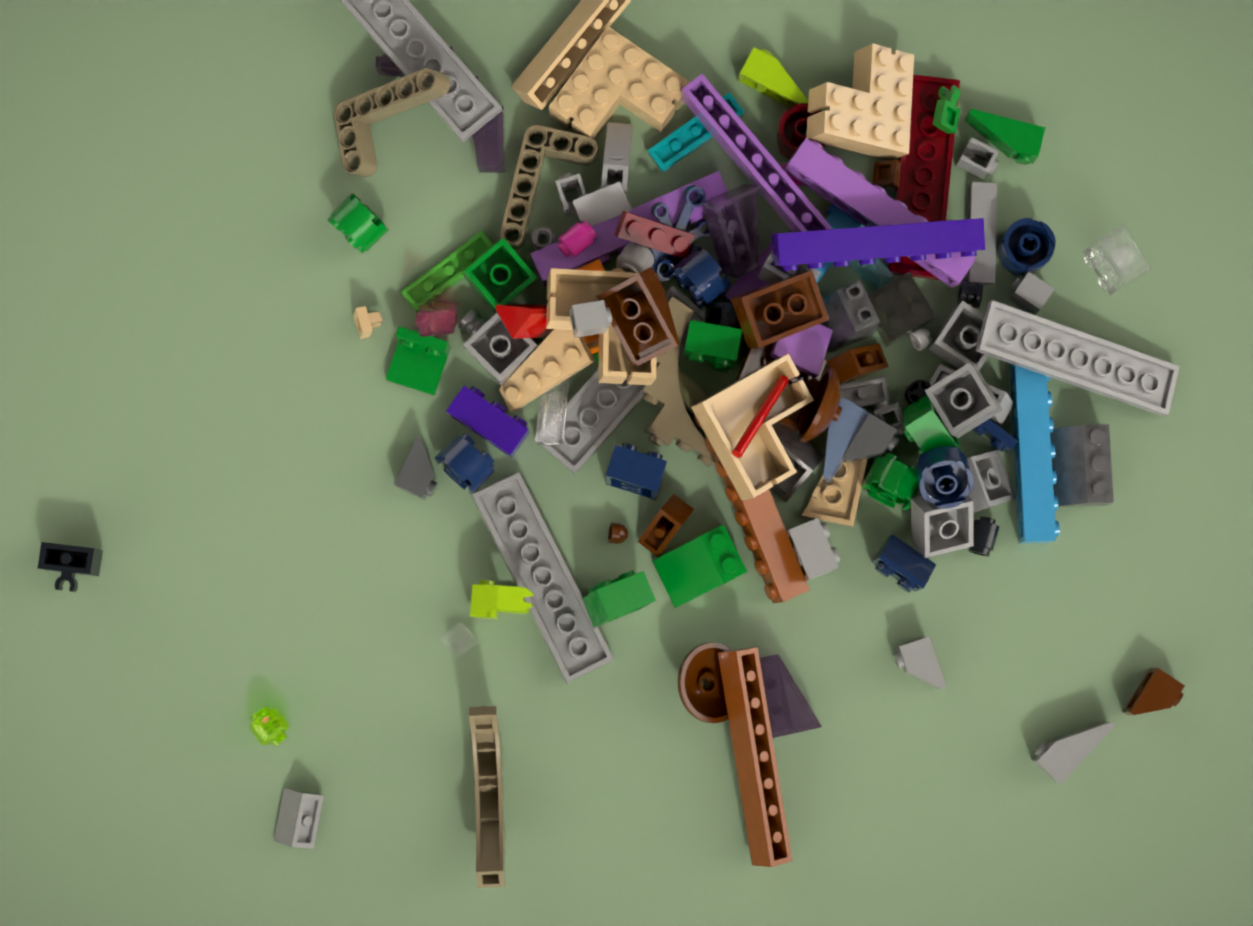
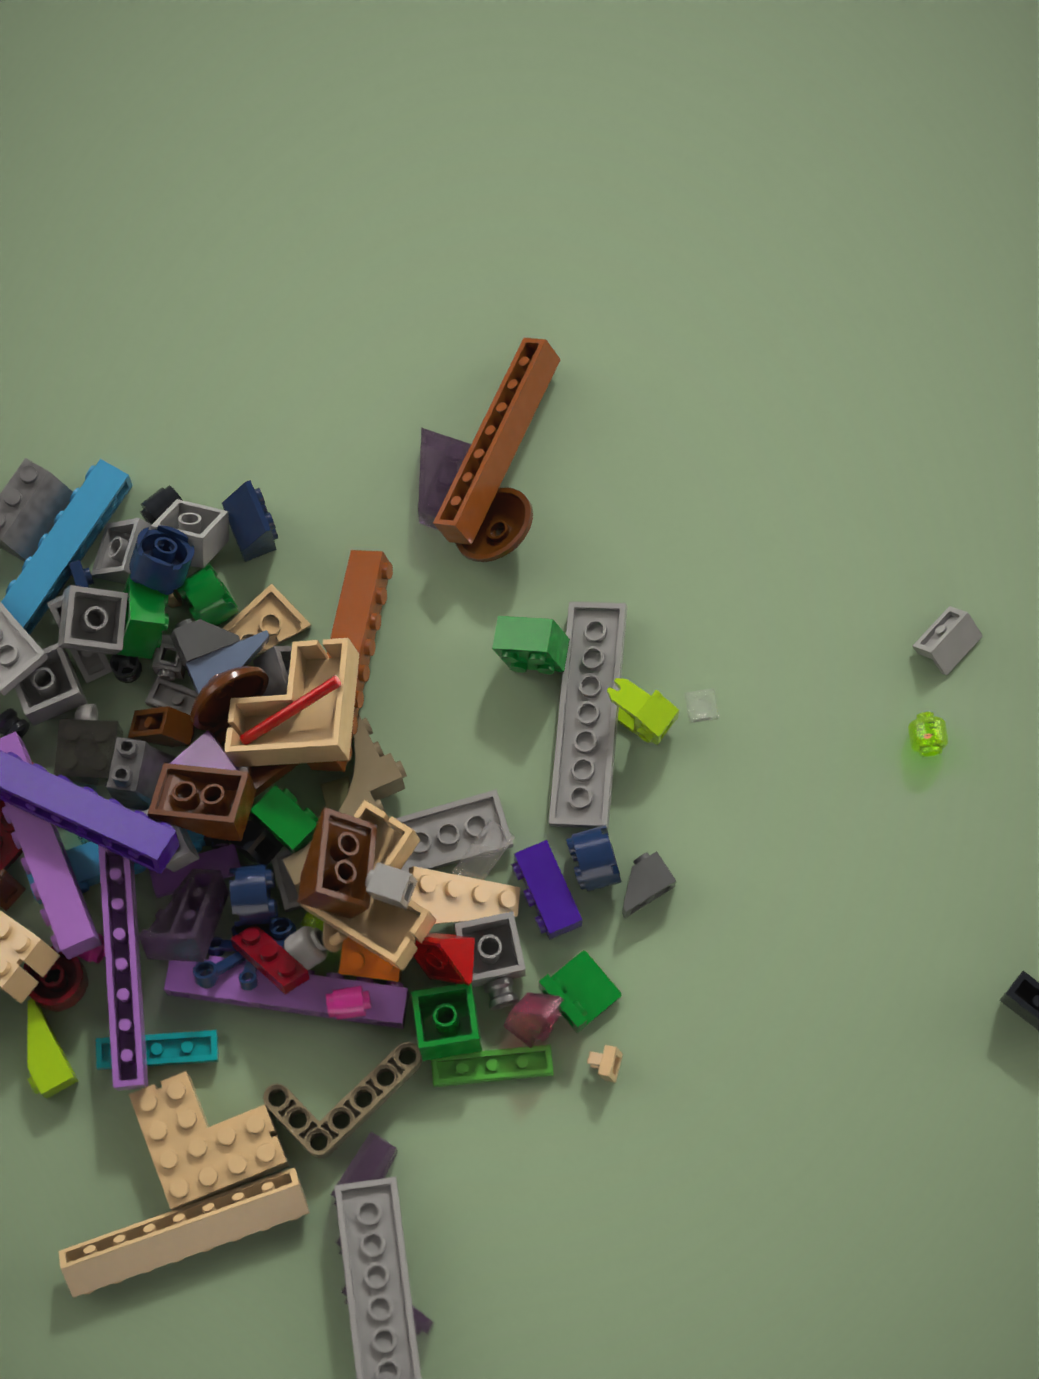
camera: 145 degrees left, 10 degrees down
(358, 222) = (553, 1164): green brick -> none
(359, 112) = (454, 1268): dark tan beam -> none
(488, 797) = (763, 542): dark tan arch -> none
(537, 233) = (375, 1030): light grey plate -> none
(565, 183) = (322, 1053): light grey window -> none
(602, 204) = (299, 1025): light grey panel -> none
(617, 154) = (253, 1069): light grey slope -> none
(617, 533) = (492, 712): reddish brown hinge -> none
(636, 471) = (438, 744): dark blue brick -> none
(665, 525) = (441, 690): reddish brown slope -> none
(699, 566) = (435, 635): green slope -> none
(813, 549) = (323, 581): light grey brick -> none
(920, 662) = (294, 436): light grey slope -> none
(1065, 753) = (220, 288): light grey slope -> none
(1155, 693) = (113, 288): reddish brown slope -> none

